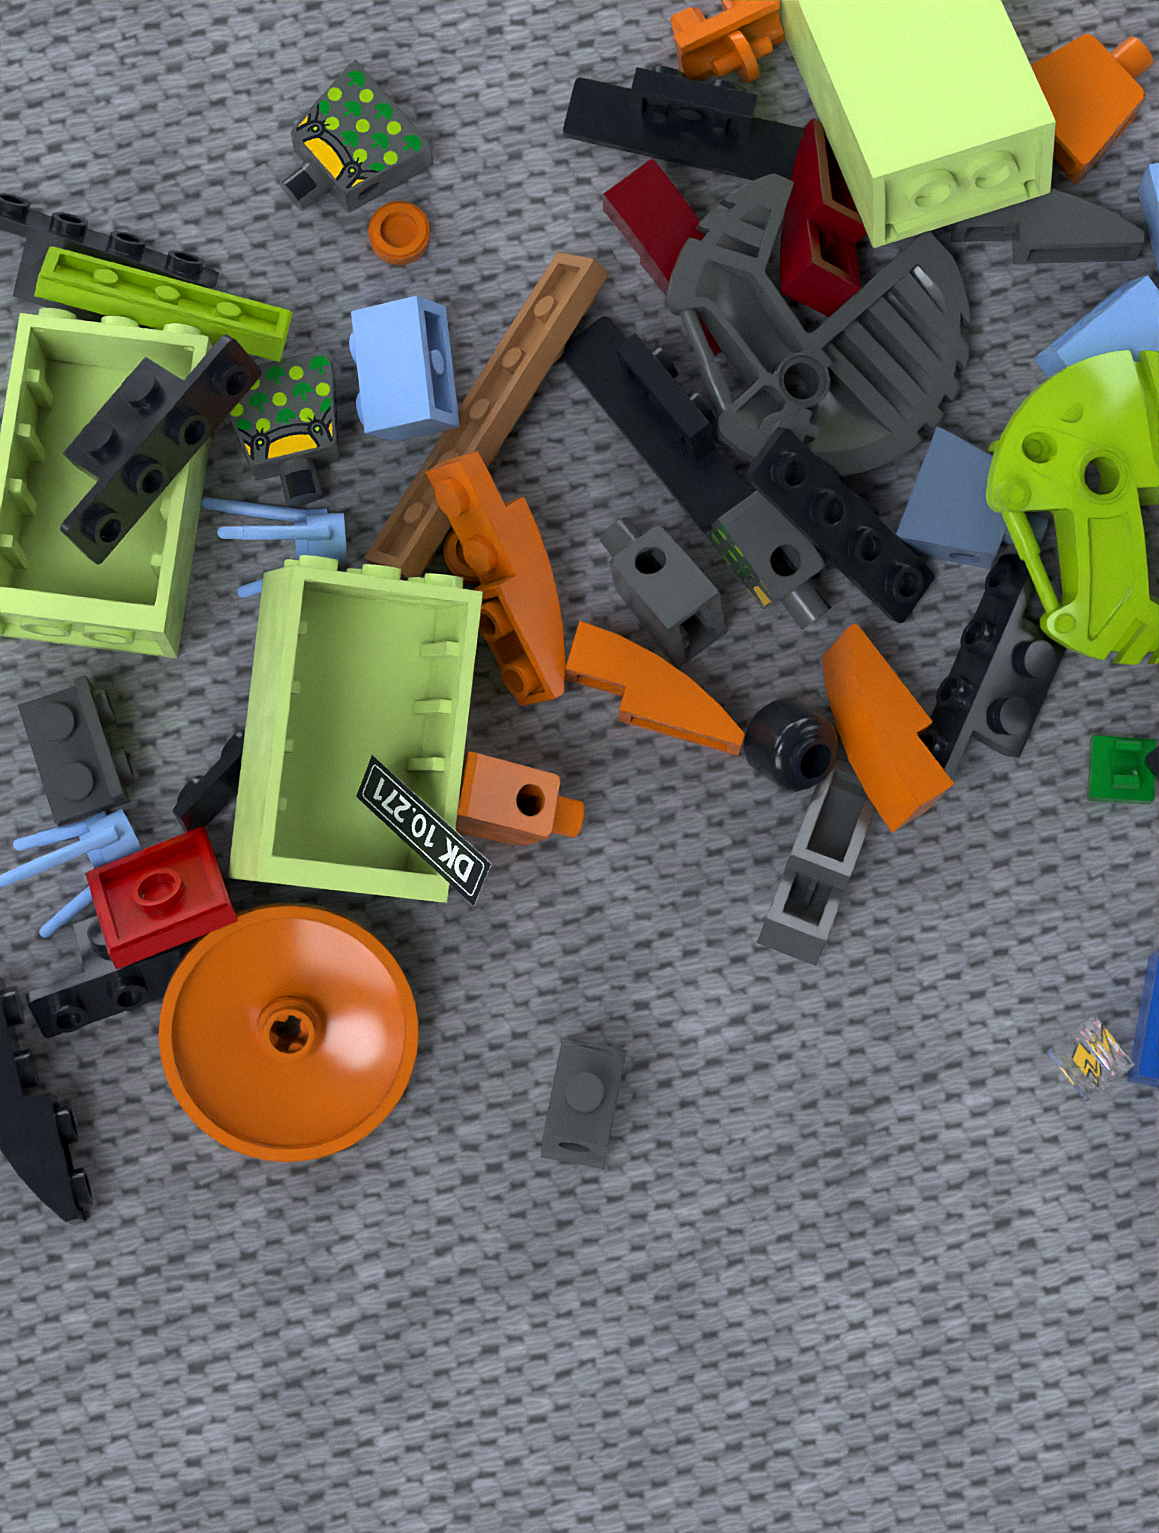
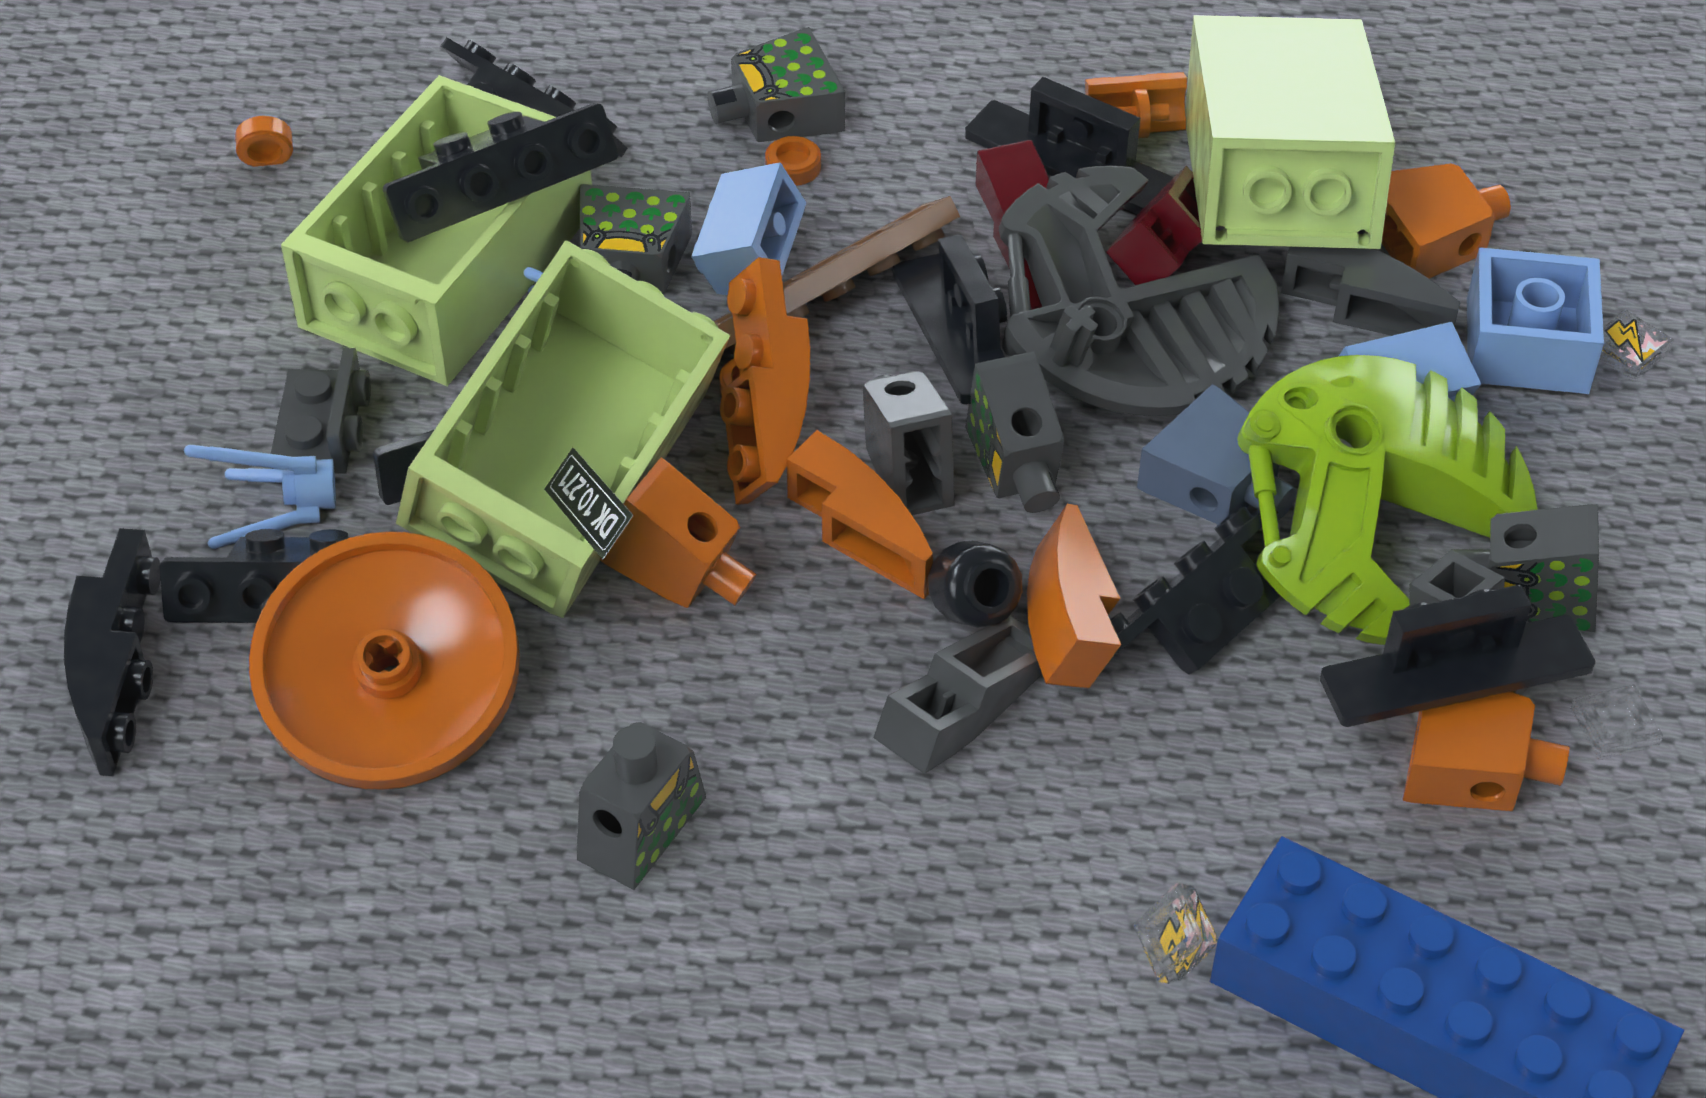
camera: 20 degrees right, 30 degrees down
(160, 300) = (503, 83): lime tile -> none
(160, 897) = (325, 512): red plate -> none
(839, 524) = (1089, 413): black bracket -> none
(1119, 770) = (1297, 710): green tile -> none

